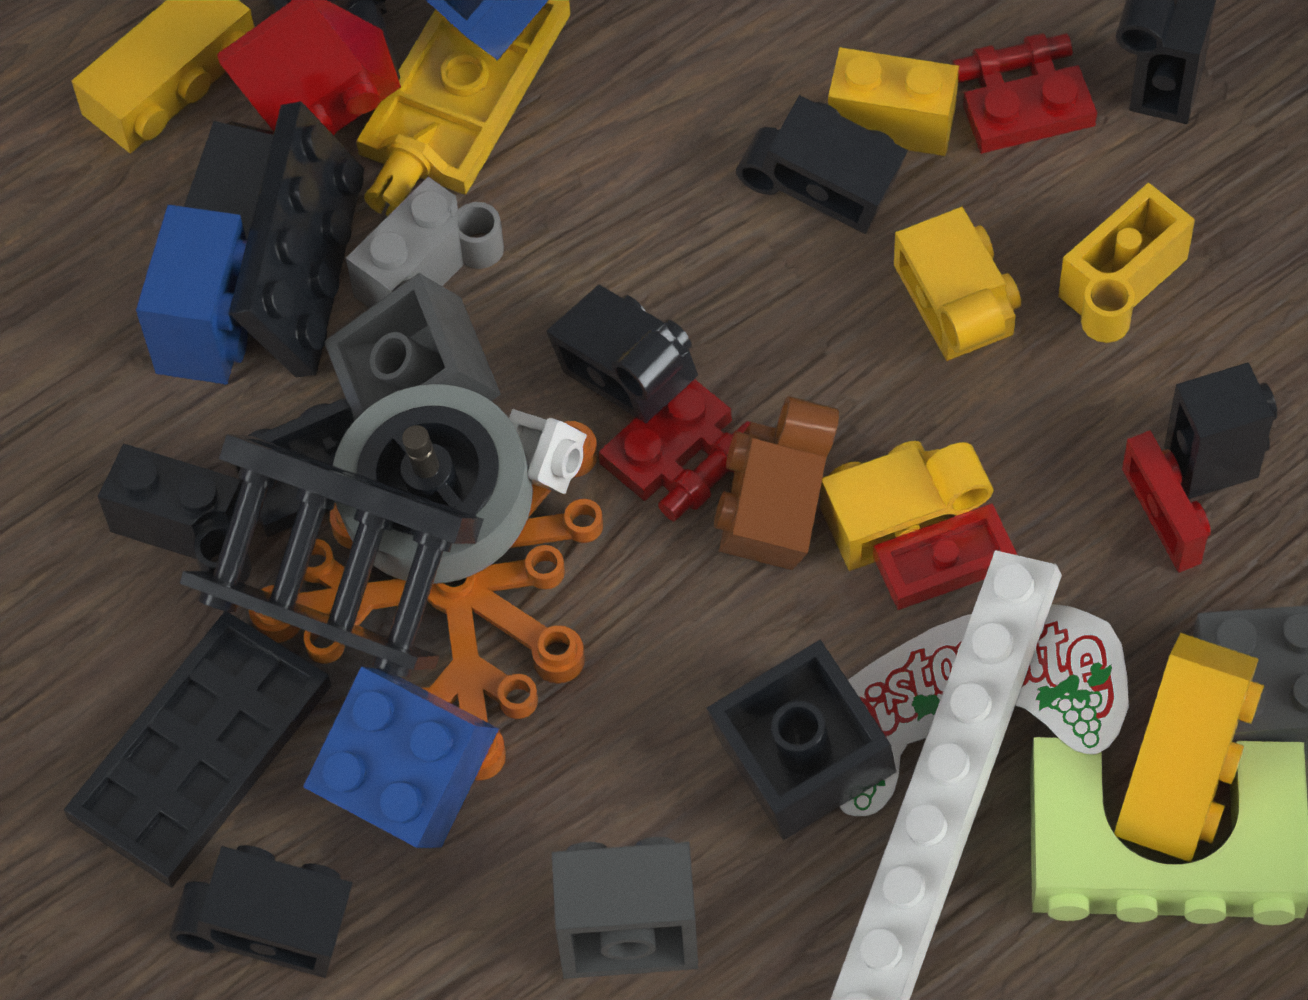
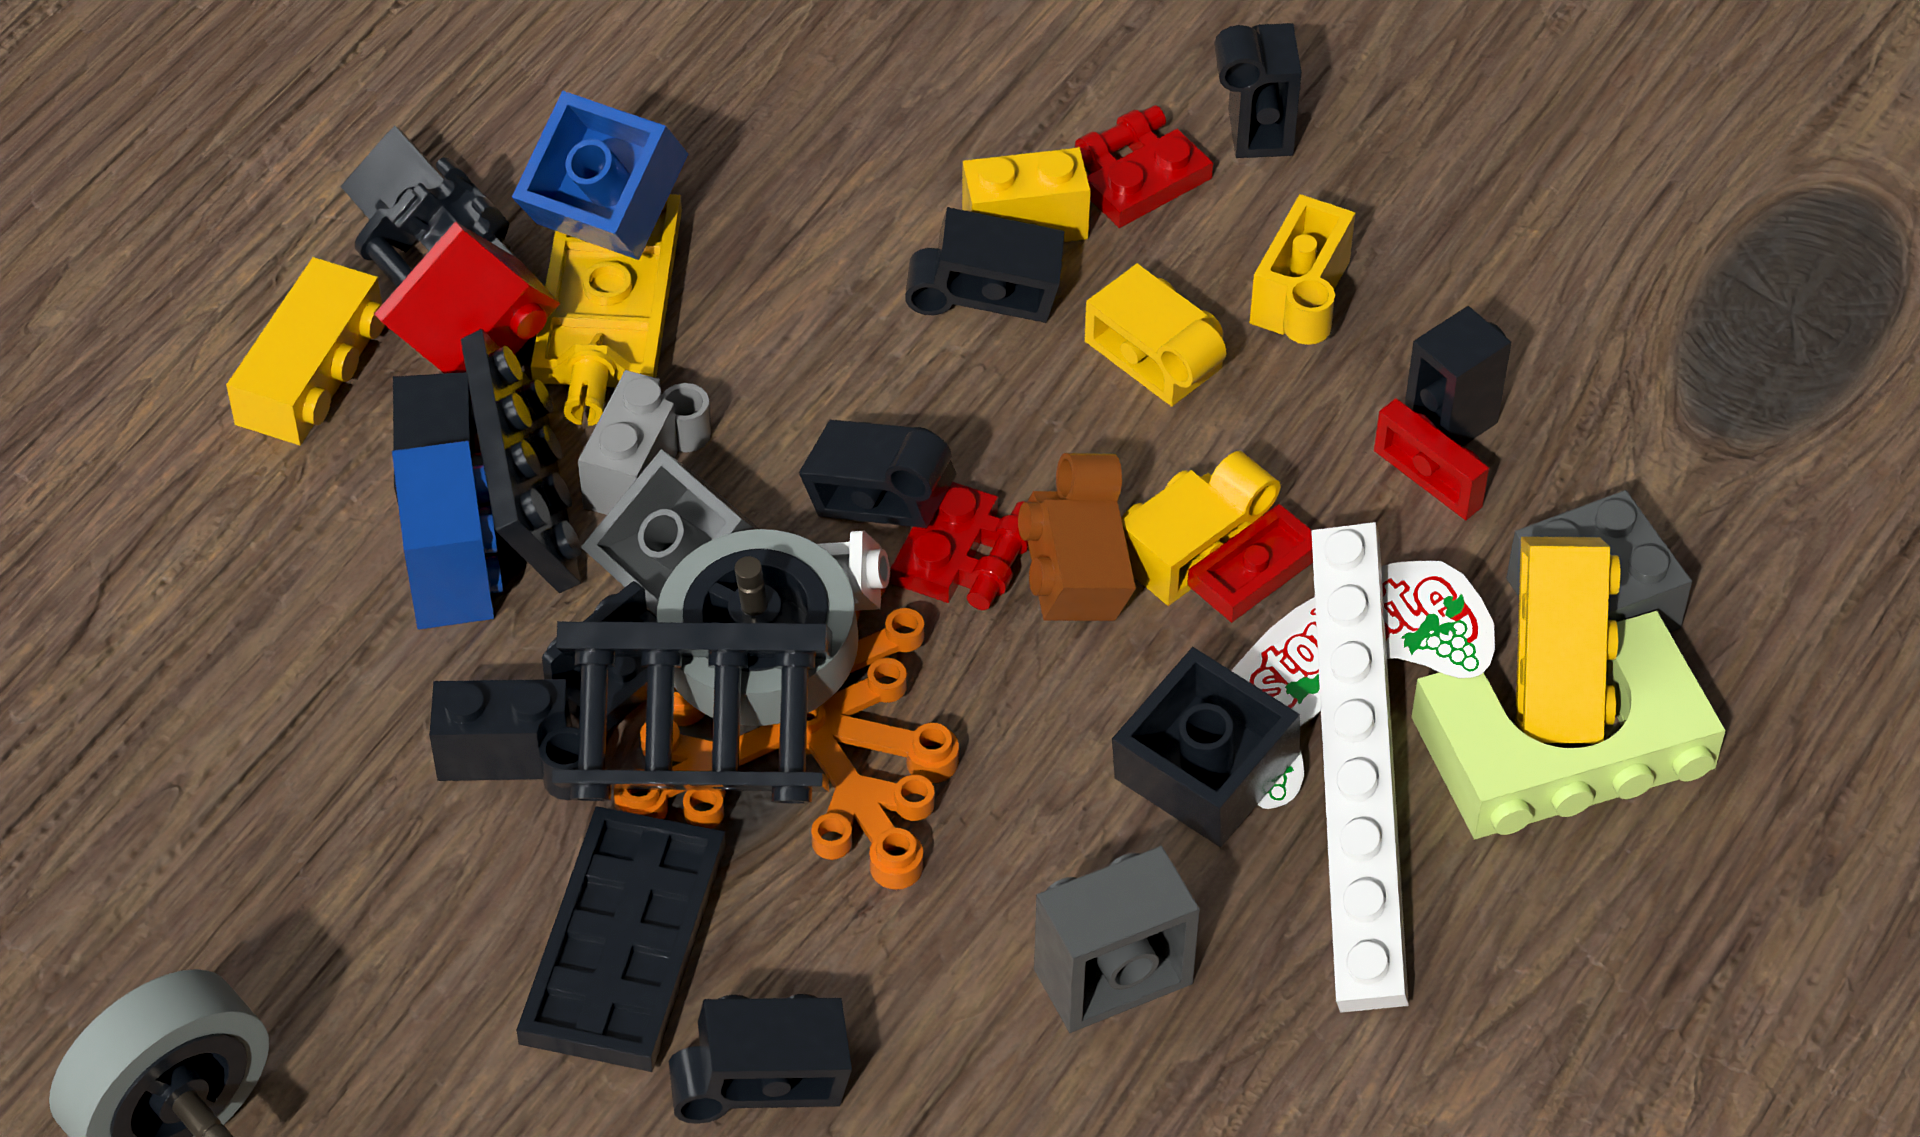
camera: 25 degrees left, 10 degrees down
(400, 758) = (836, 874): blue brick -> none

